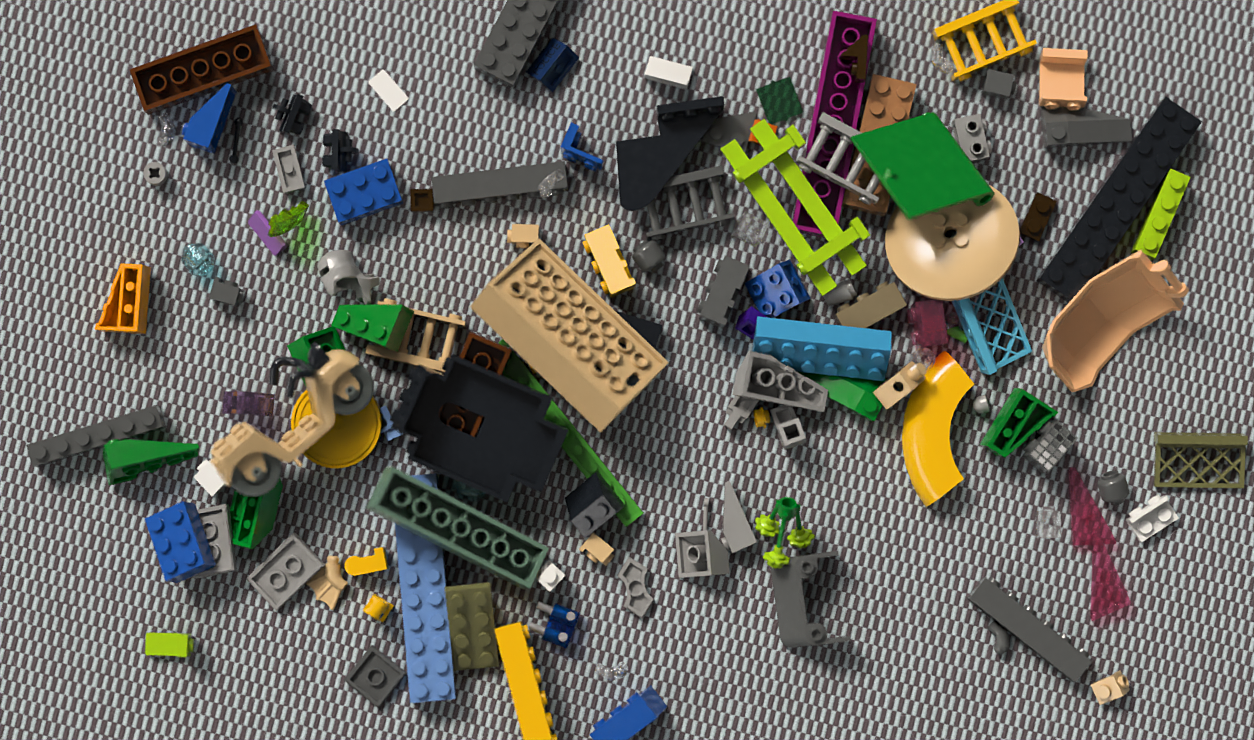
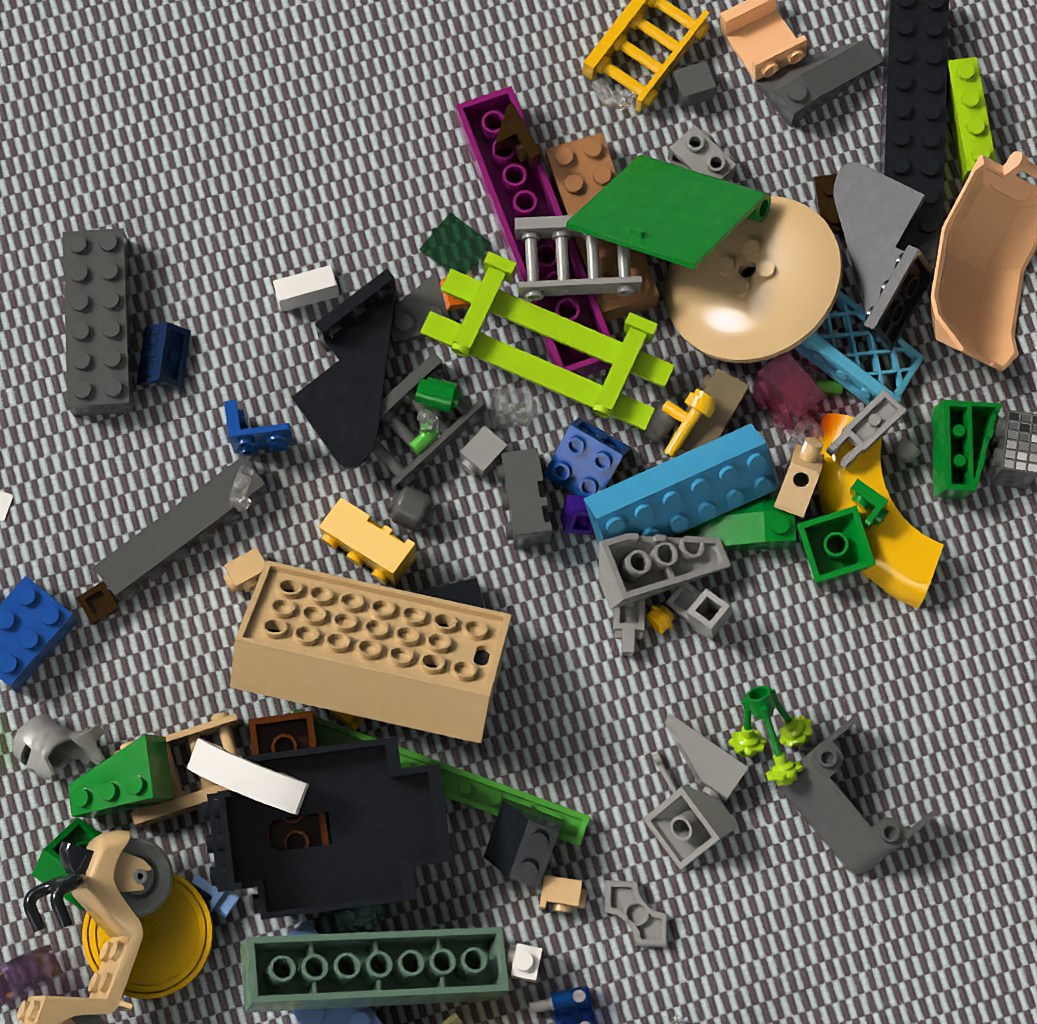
camera: 25 degrees left, 10 degrees down
(447, 369) = (247, 777): none -> white slope
(689, 213) = (429, 431): none -> arm
(708, 194) = (438, 394): none -> green brick
(714, 247) = (482, 453): none -> light grey brick
(867, 300) = (700, 405): none -> yellow piece
(896, 438) = (836, 545): none -> green slope
(932, 421) = (868, 498): none -> green bracket
(963, 377) = (868, 427): none -> light grey hinge
(1054, 246) = (874, 221): none -> piece

